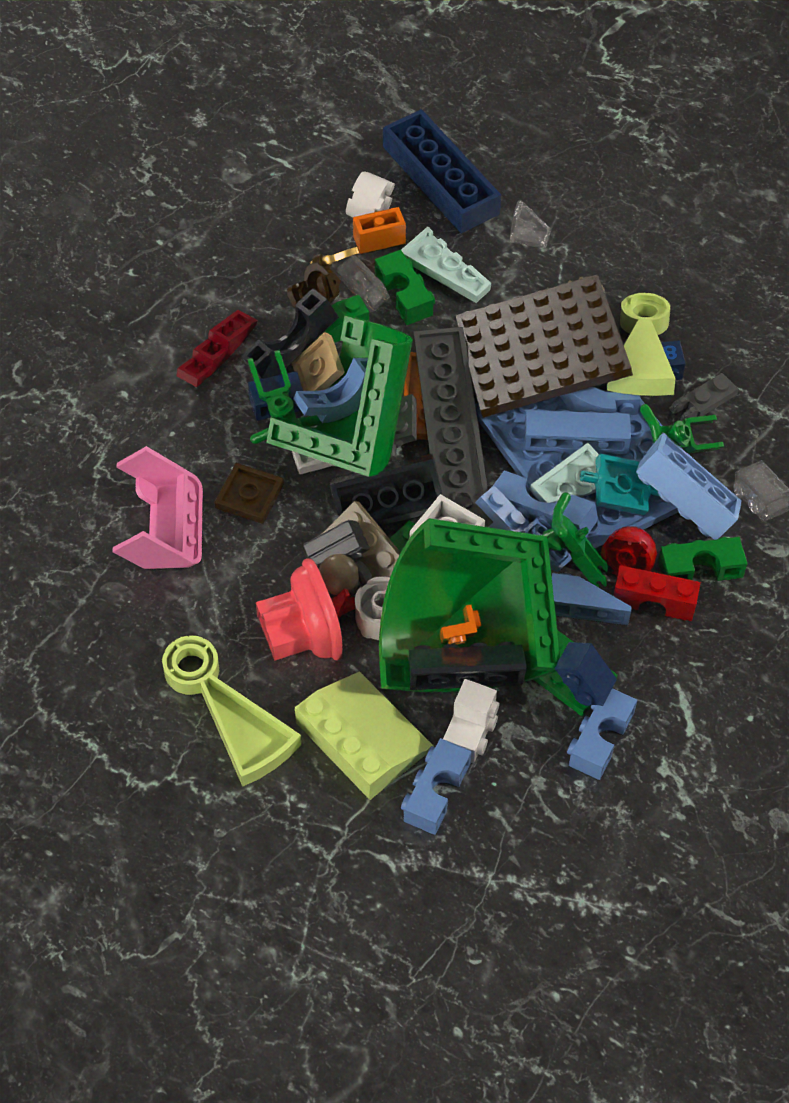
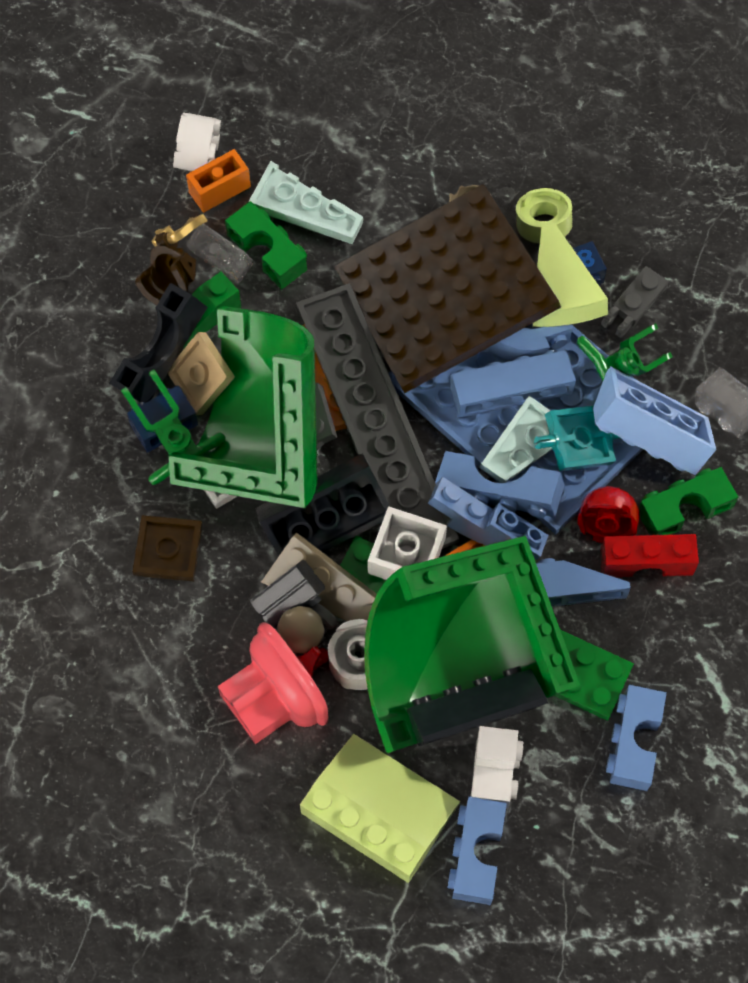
camera: 15 degrees left, 10 degrees up
(174, 513) = (90, 599): bright pink windscreen -> none
(219, 346) = (76, 374): dark red slope -> none
(250, 734) = (256, 844): yellowish green piece -> none
(337, 400) = (241, 407): medium blue arch -> none
(441, 171) = (267, 87): dark blue brick -> none
(458, 633) = (457, 667): orange bracket -> none
(528, 227) = (385, 136): clear slope -> none
(567, 535) = (541, 520): green piece -> none
(585, 673) = (606, 682): dark blue brick -> none

